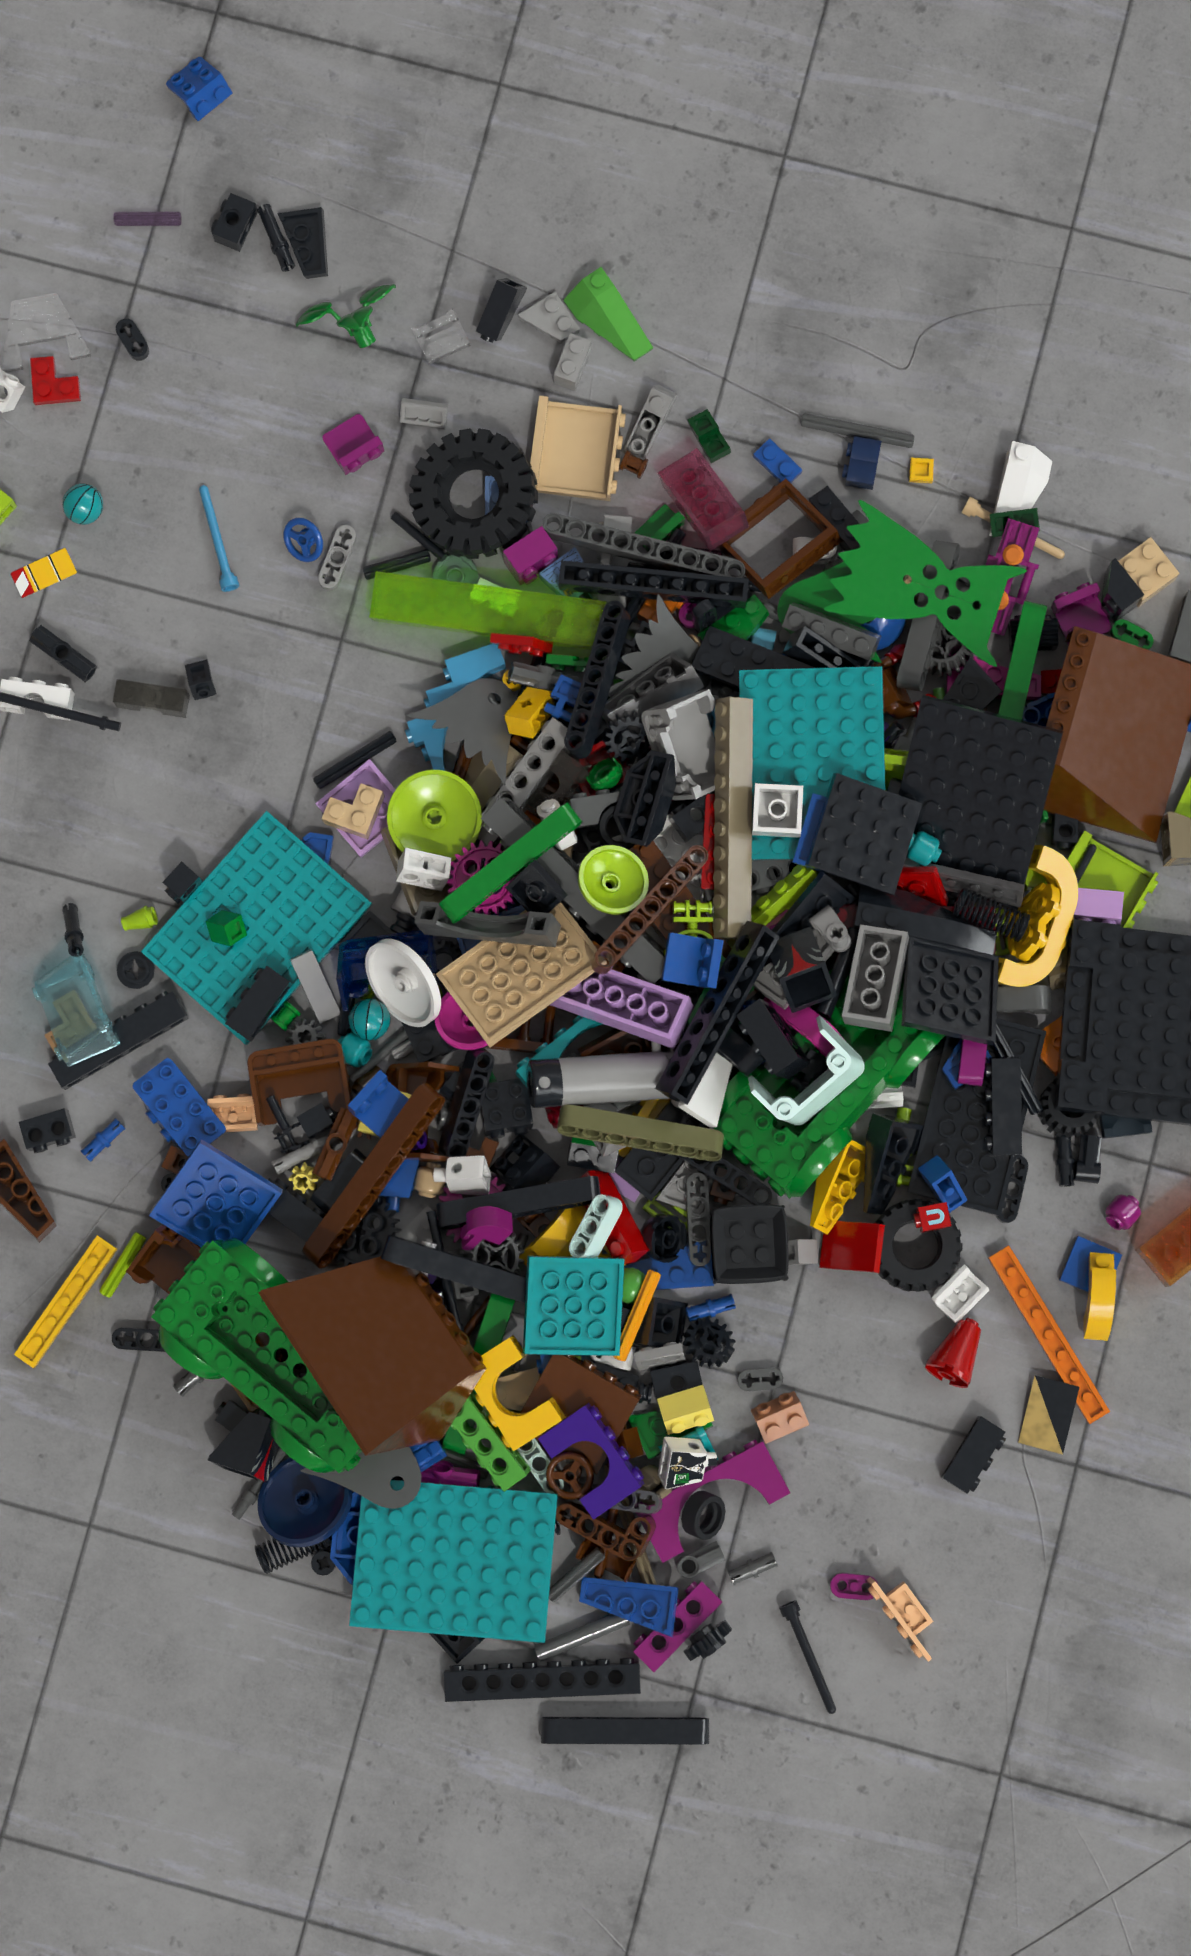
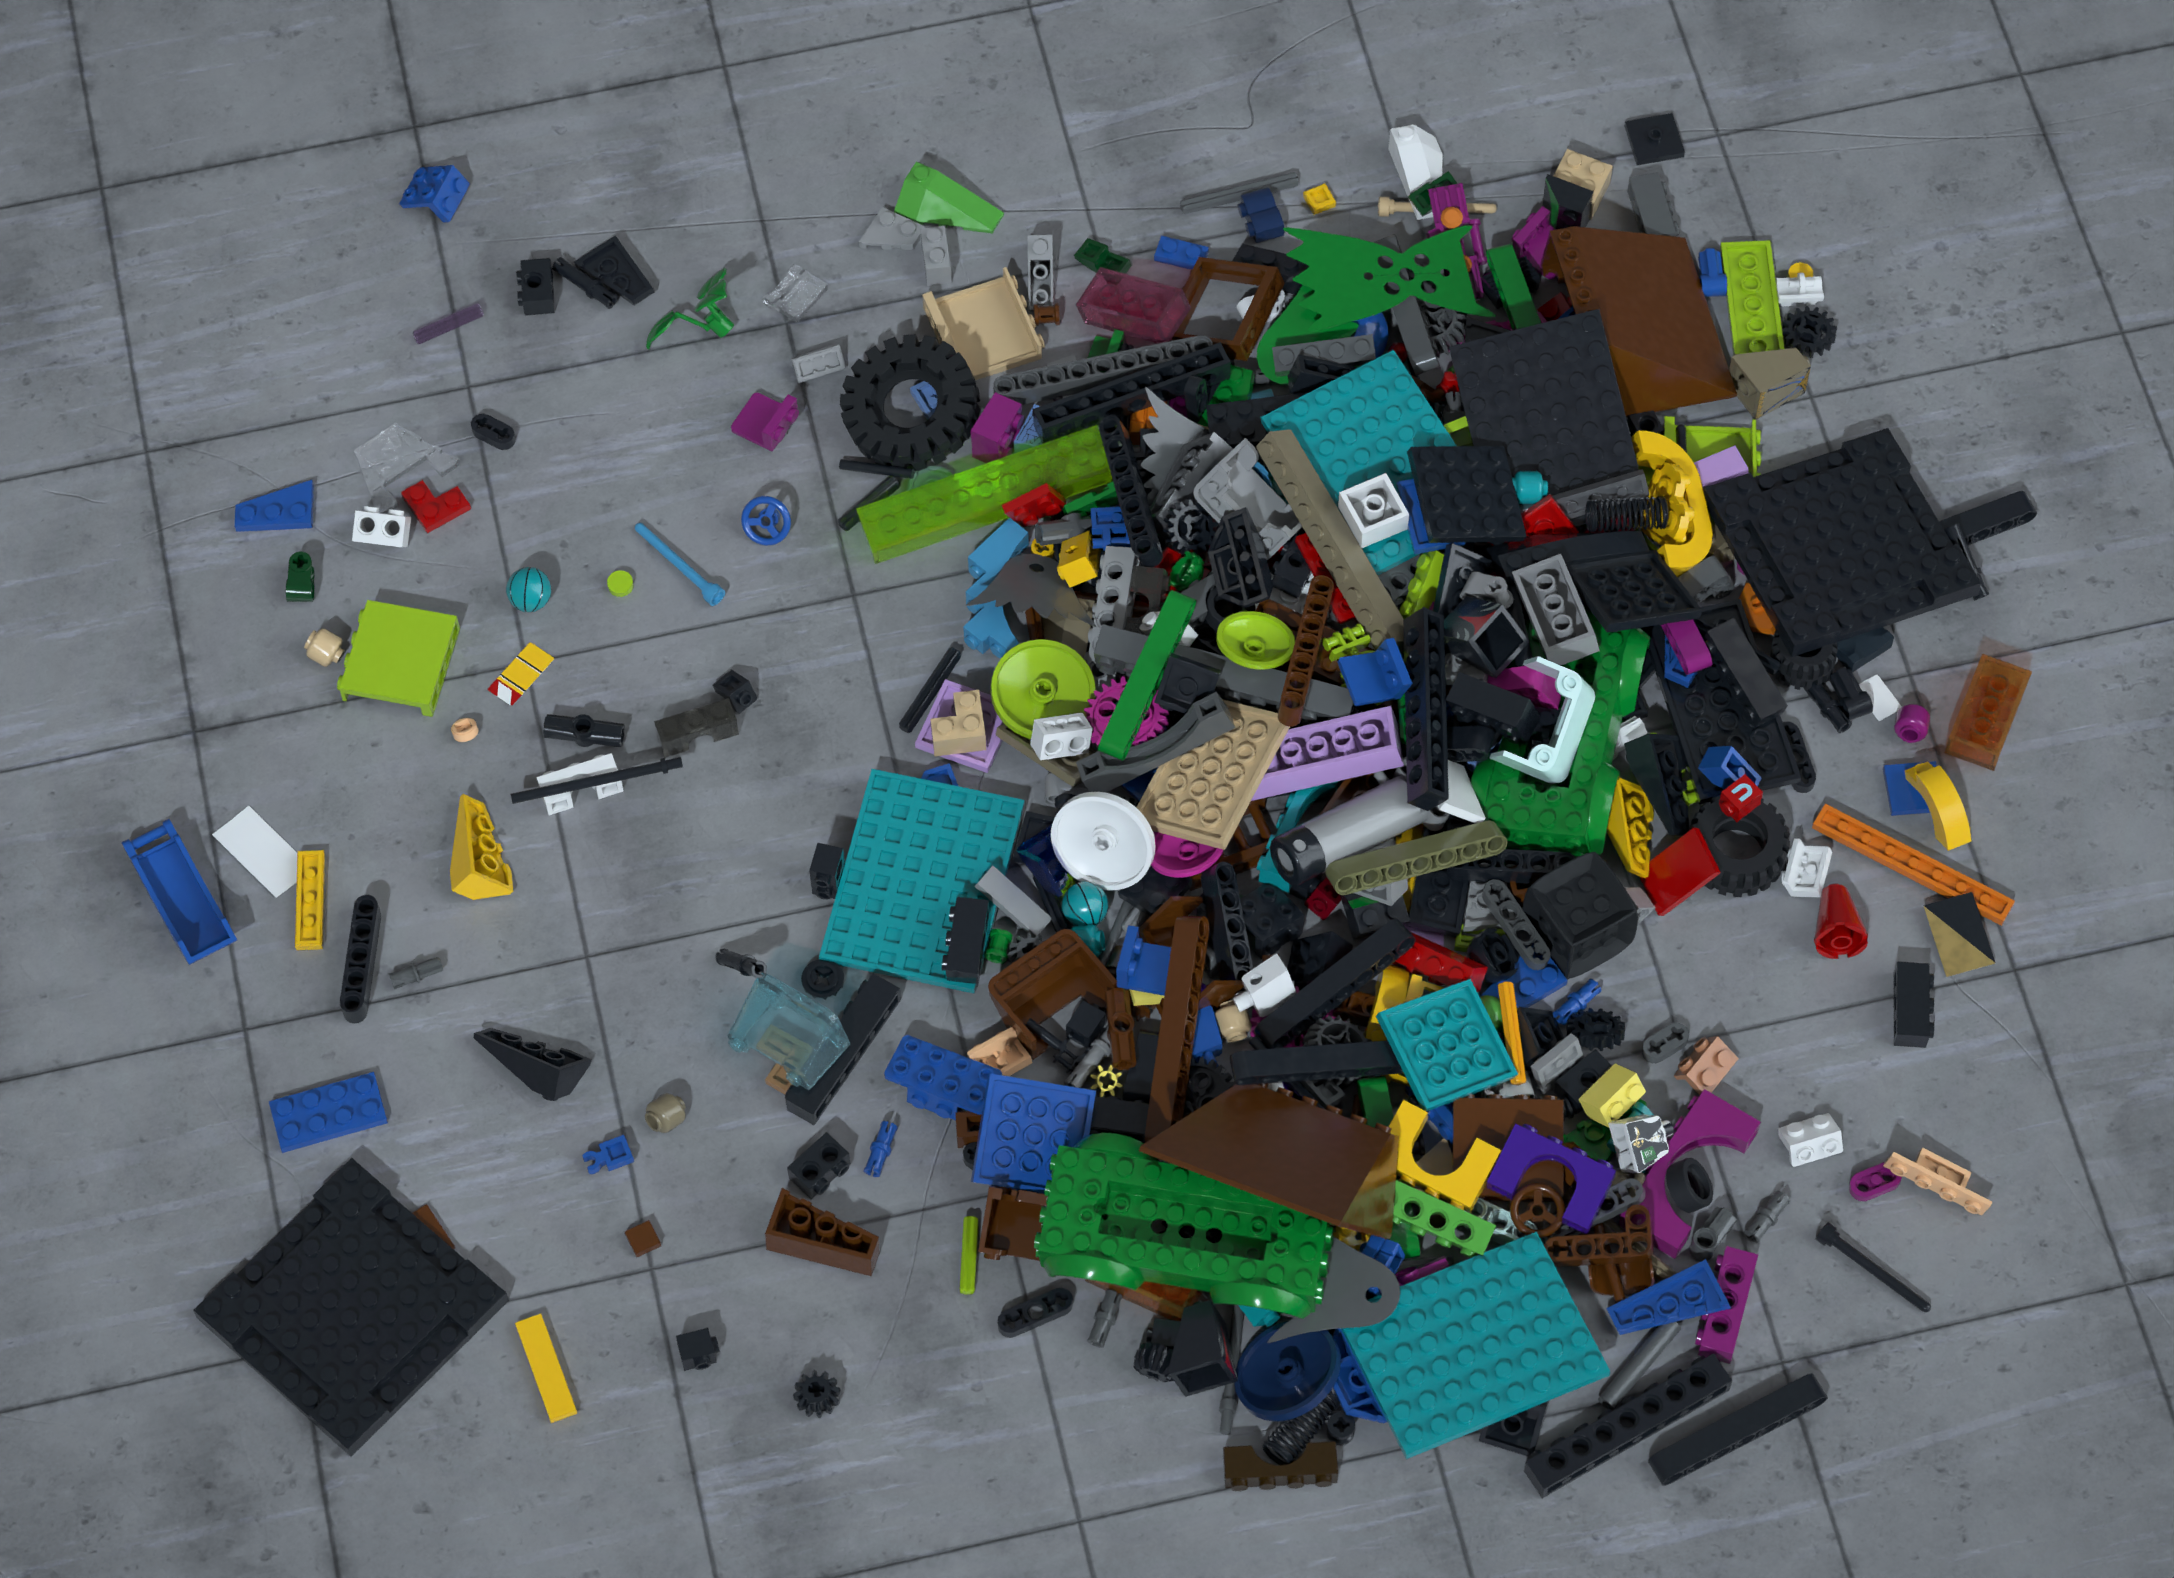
camera: 30 degrees left, 20 degrees down
(65, 1301) = (931, 1317): yellow plate -> none
(140, 919) = (800, 930): lime cone -> none
(162, 533) = (620, 583): none -> lime tile
(209, 1433) = (1153, 1361): none -> black gear
(226, 928) = (894, 888): green panel -> none
(232, 1556) = (1246, 1469): none -> dark brown arch
(349, 544) = (803, 534): light grey beam -> none
(486, 1223) = (1315, 1010): magenta brick -> none
(500, 309) = (840, 242): black slope -> none
(576, 1574) = (1601, 1301): dark grey axle -> none
(598, 1215) = (1417, 954): light aqua beam -> none
(707, 1640) = (1766, 1296): black gear -> none
(825, 1523) = (1811, 1139): none -> white bracket
(1112, 1171) = (1882, 699): none -> white sticker

